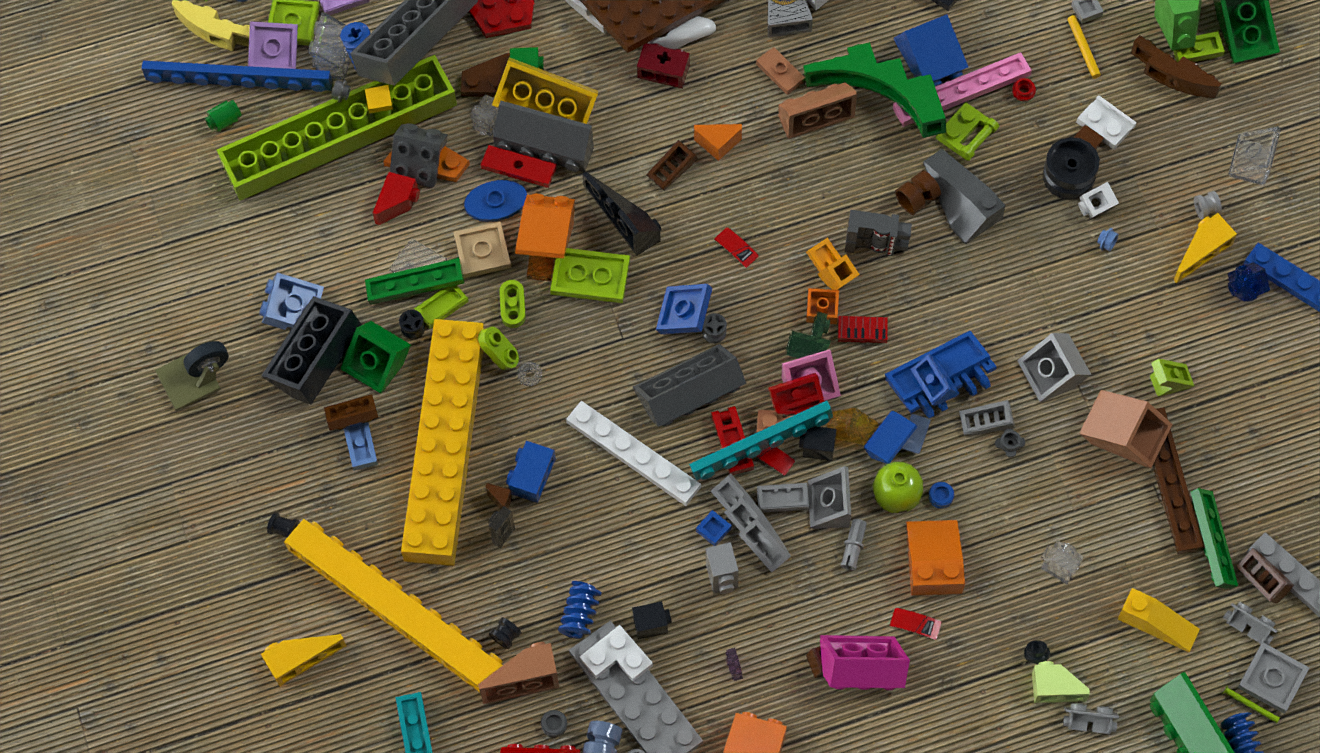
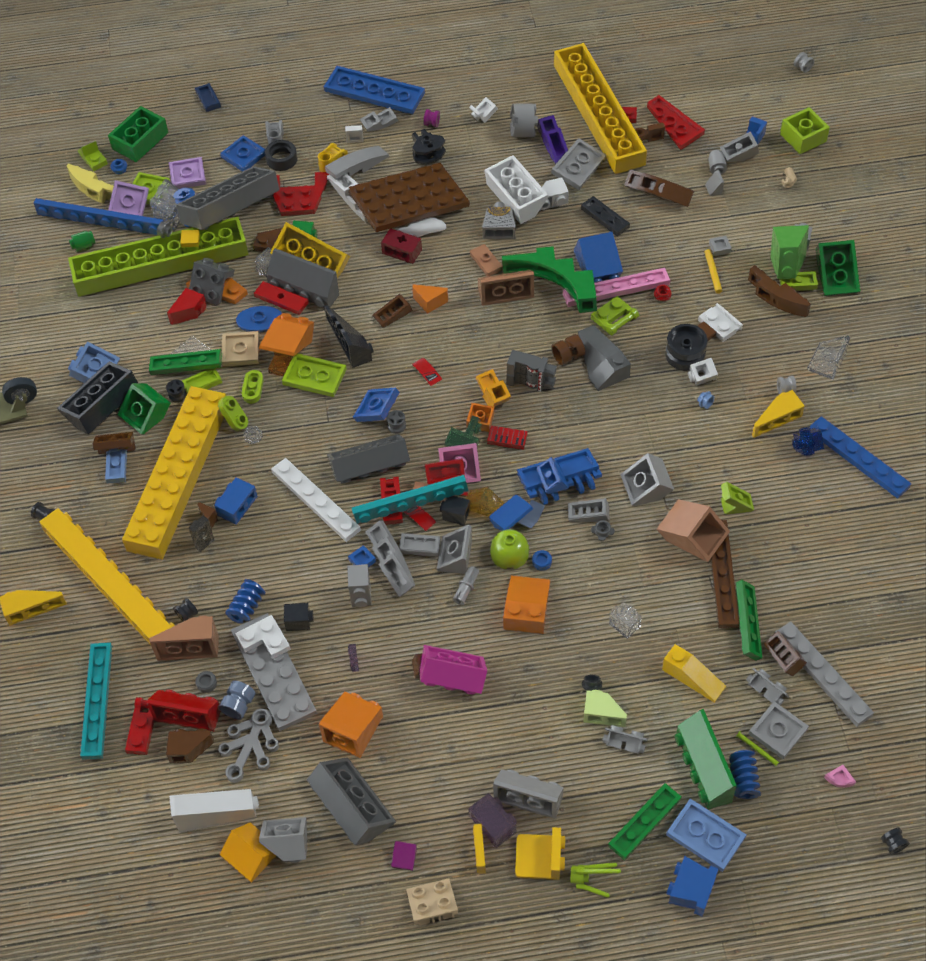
camera: 10 degrees right, 10 degrees down
(915, 623) = (502, 649): red sticker -> none

